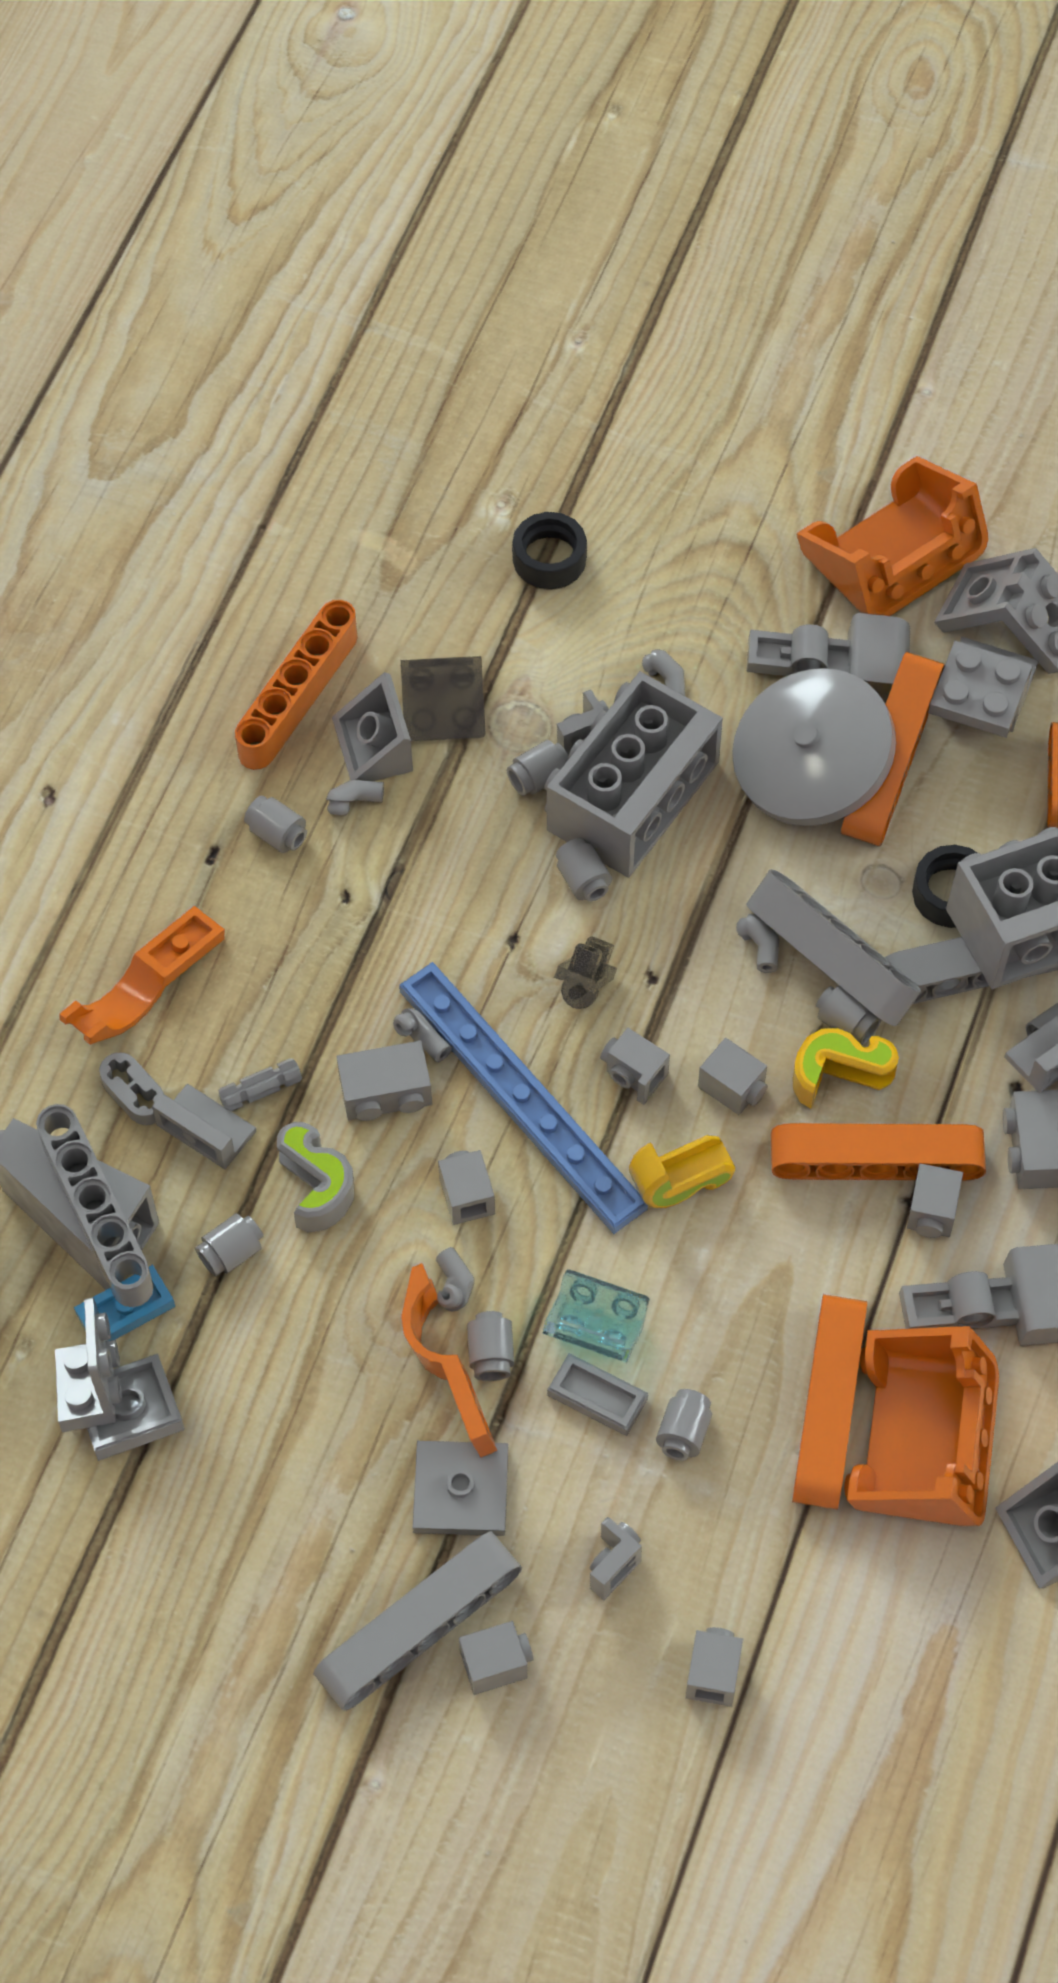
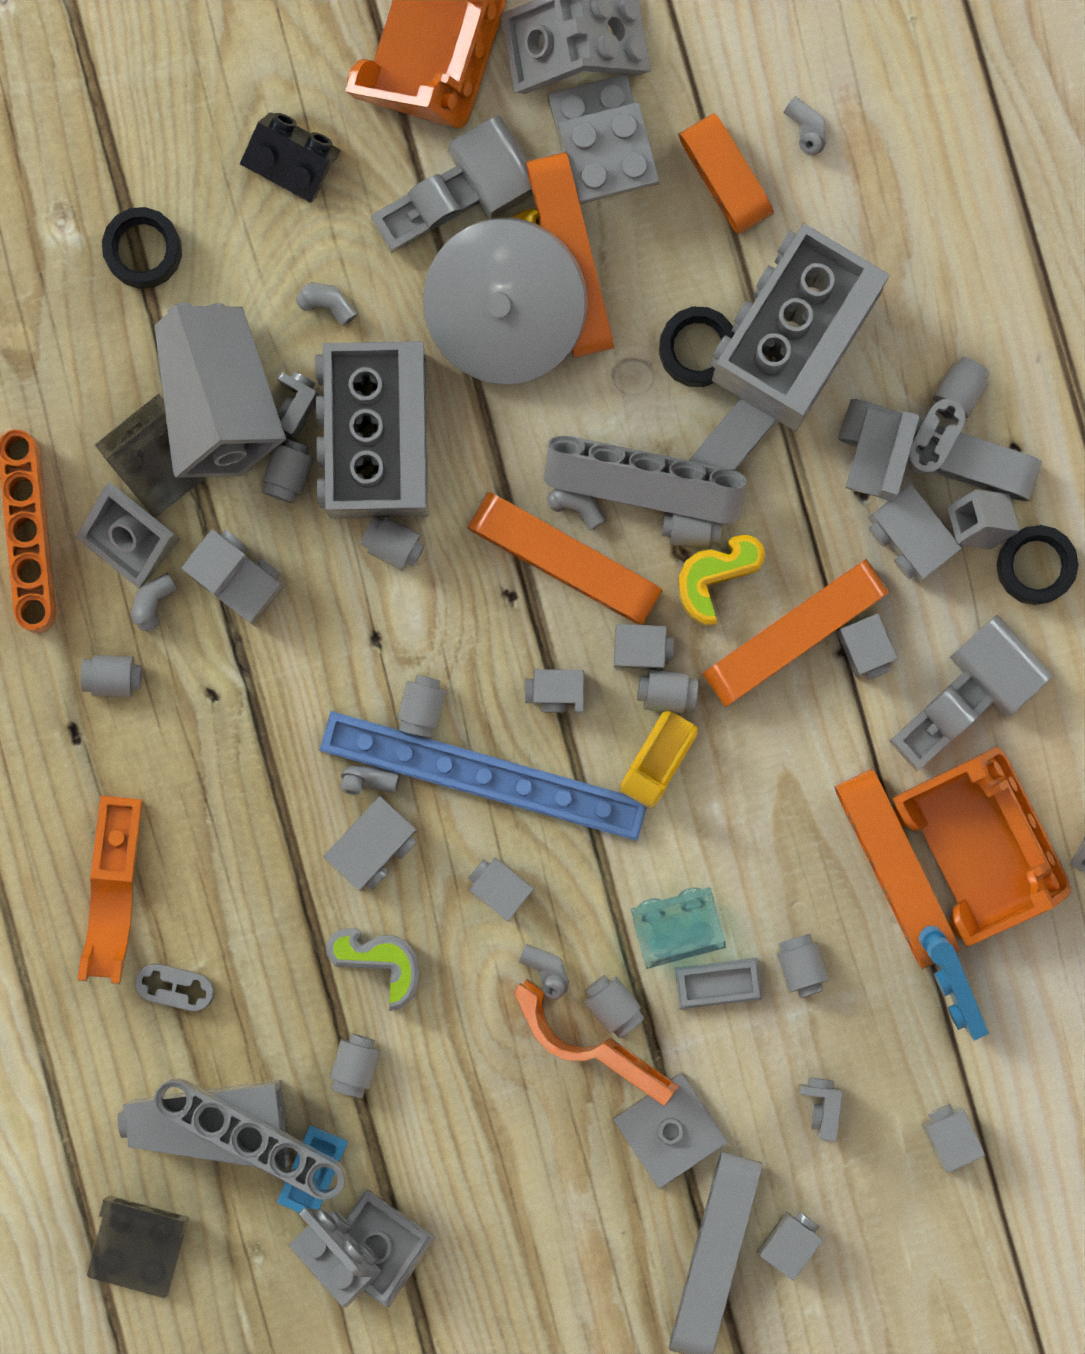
camera: 40 degrees left, 25 degrees up
(203, 1125) = (255, 976): light grey panel -> none
(260, 1084) = (272, 913): light grey axle -> none
(430, 805) = (232, 577): none -> light grey brick
(511, 1005) = (421, 706): none -> light grey brick
(523, 669) = (214, 392): none -> light grey slope
(586, 972) = (463, 636): clear smoke hips -> none
(716, 557) = (290, 155): none -> black bracket
(719, 970) = (564, 558): none -> orange beam
(732, 1124) = (668, 691): none -> light grey brick
(812, 1516) = (953, 982): none -> dark azure plate

